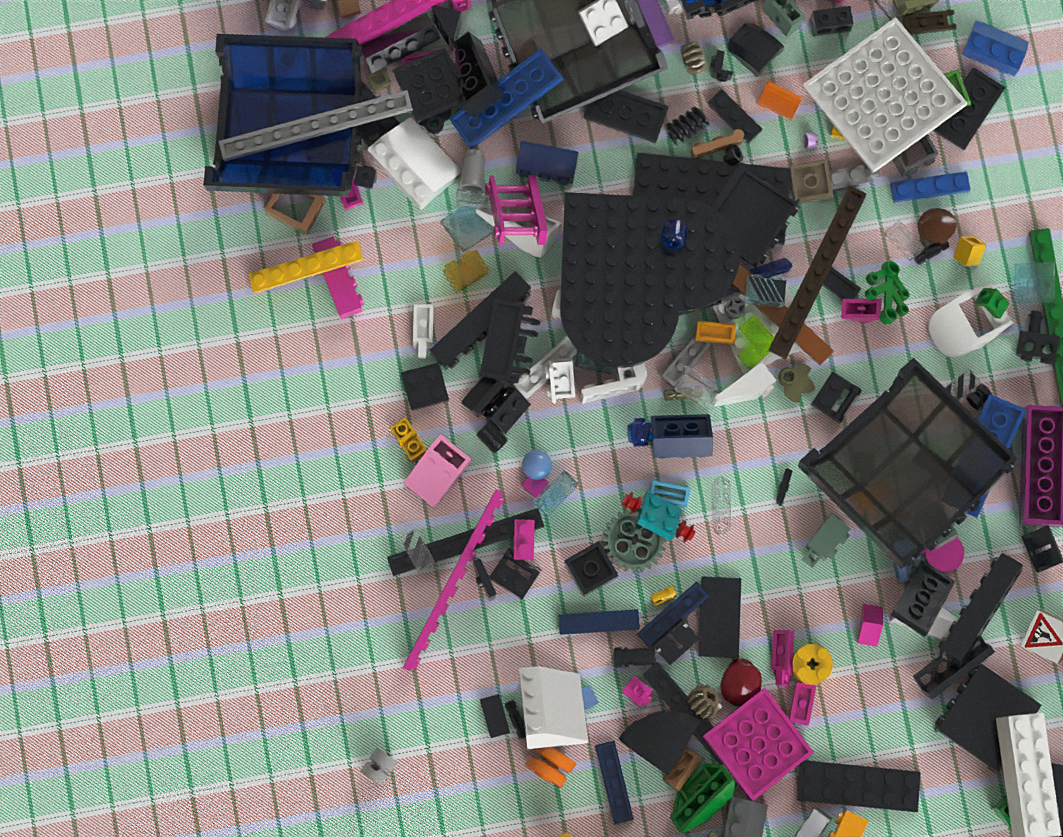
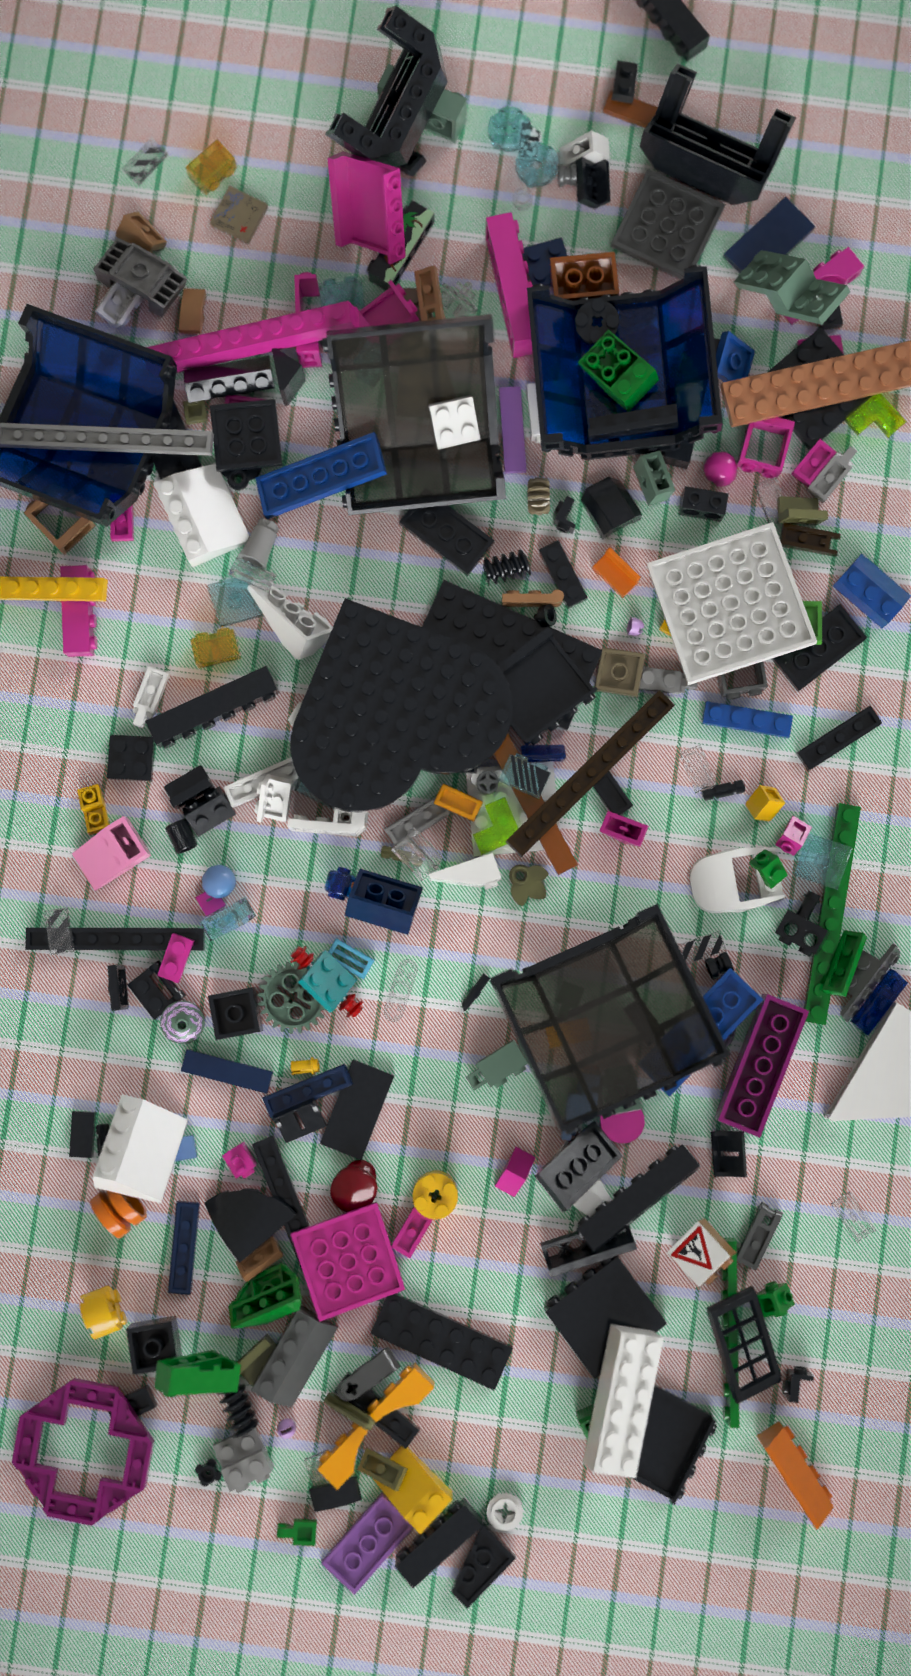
camera: 25 degrees right, 5 degrees up
(365, 177) = (142, 512): black bracket -> none
(450, 588) = (79, 984): dark pink plate -> none
(476, 75) = (296, 440): black wedge -> none
(505, 340) = (228, 738): black hinge -> none
(532, 202) = (304, 614): dark pink fence -> none
(537, 591) = (186, 1012): none -> dish
(547, 162) = (341, 559): dark blue slope -> none
(634, 656) = (249, 1122): black axle -> none
(674, 234) = (443, 683): clear blue head -> none
(704, 701) = (307, 1196): dark tan gear -> none
(782, 656) = (408, 1174): dark pink hinge -> none
(830, 393) = (561, 907): black plate -> none
(890, 271) = (671, 797): green plant -> none
(937, 225) = (739, 764): reddish brown dish -> none
(1002, 270) = (793, 836): none -> dark pink bracket
(1011, 177) = (839, 738): none -> black tile

